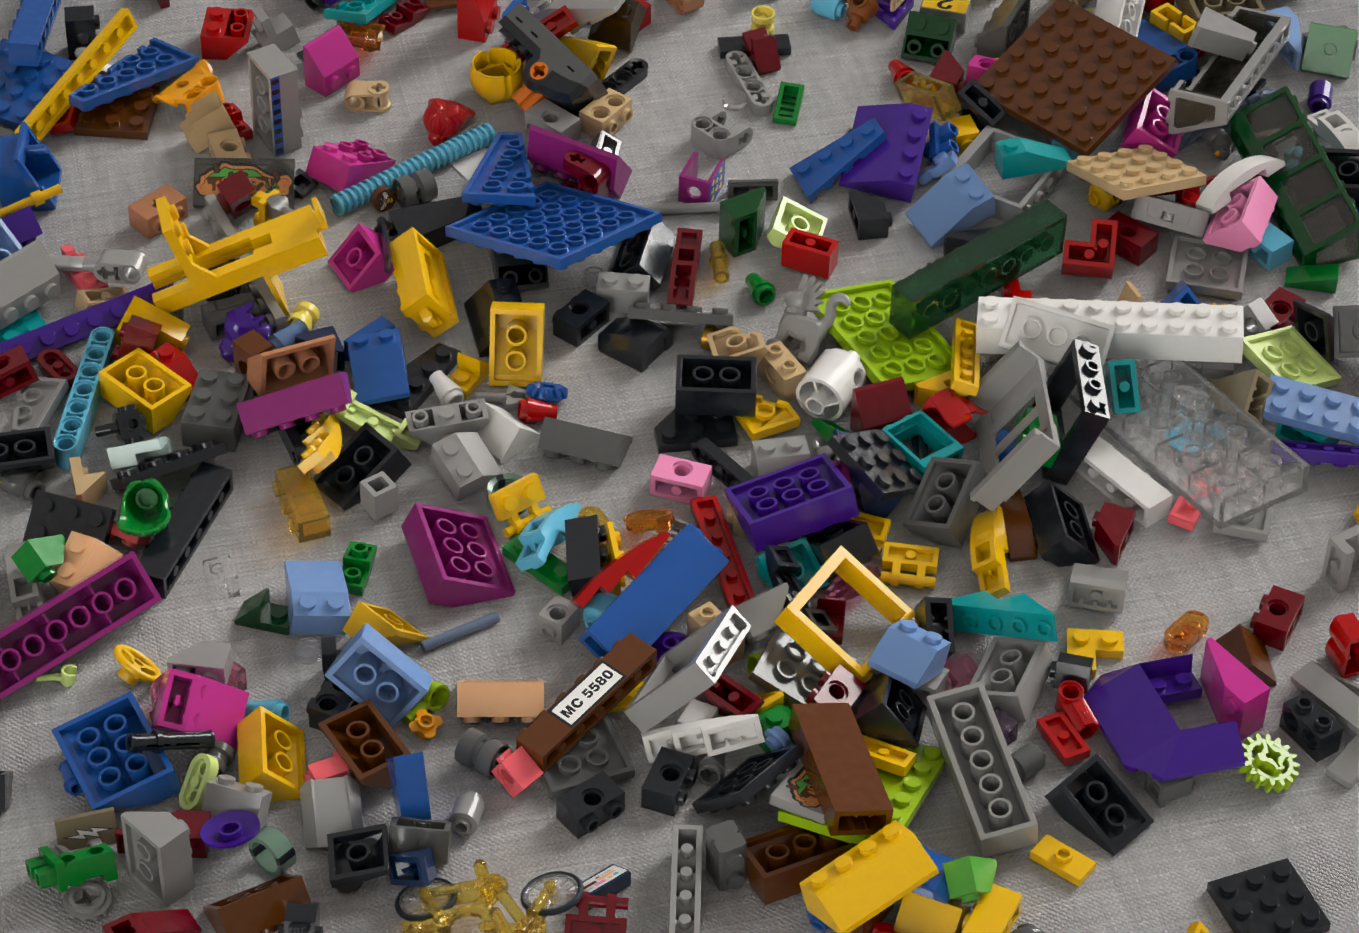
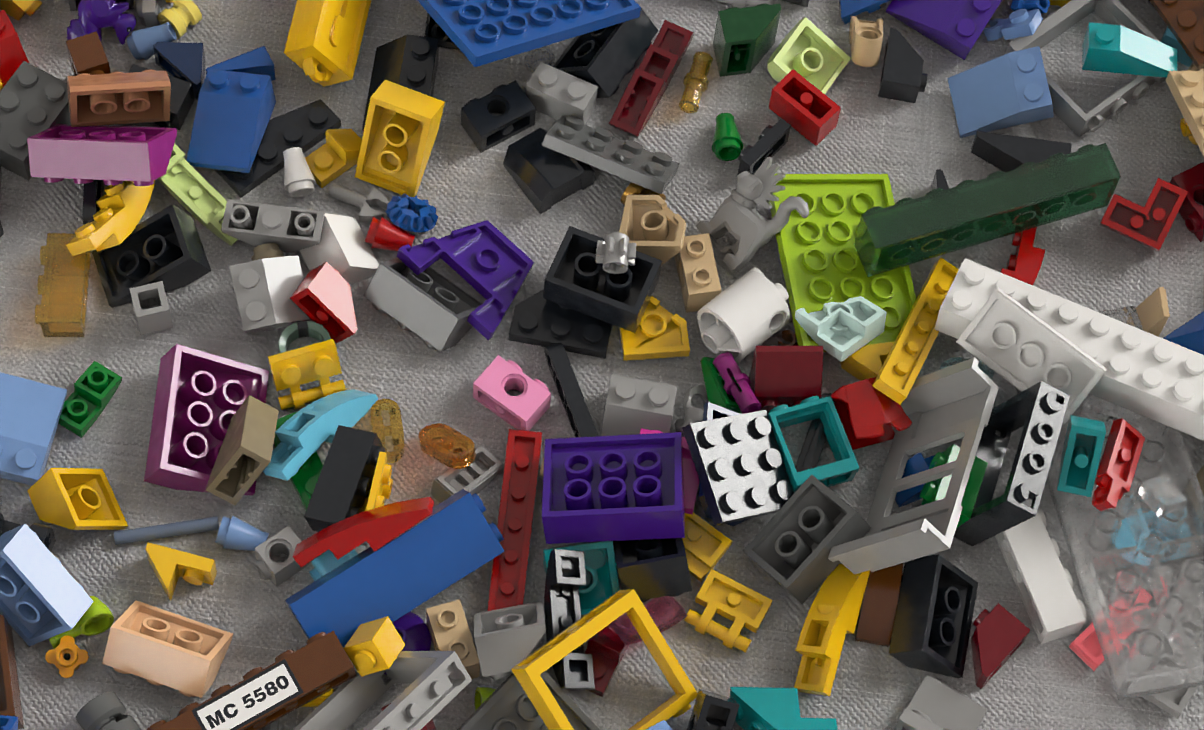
camera: 15 degrees right, 20 degrees up
(482, 645) = (171, 564): none -> yellow slope
(499, 558) = (244, 450): none -> dark tan slope
(512, 454) = (327, 301): none -> slope
(518, 617) = (239, 535): none -> medium blue cone
(615, 403) = (484, 261): none -> dark purple wing
(664, 639) = (374, 646): none -> yellow brick
(723, 355) = (616, 253): none -> light grey gear
(791, 284) = (769, 143): none -> black plate
(833, 204) = (865, 41): none -> tan piece
(843, 421) = (728, 368): none -> magenta pin
(912, 364) = (843, 326): none -> light aqua slope
(1150, 385) = (1117, 464): none -> red hinge

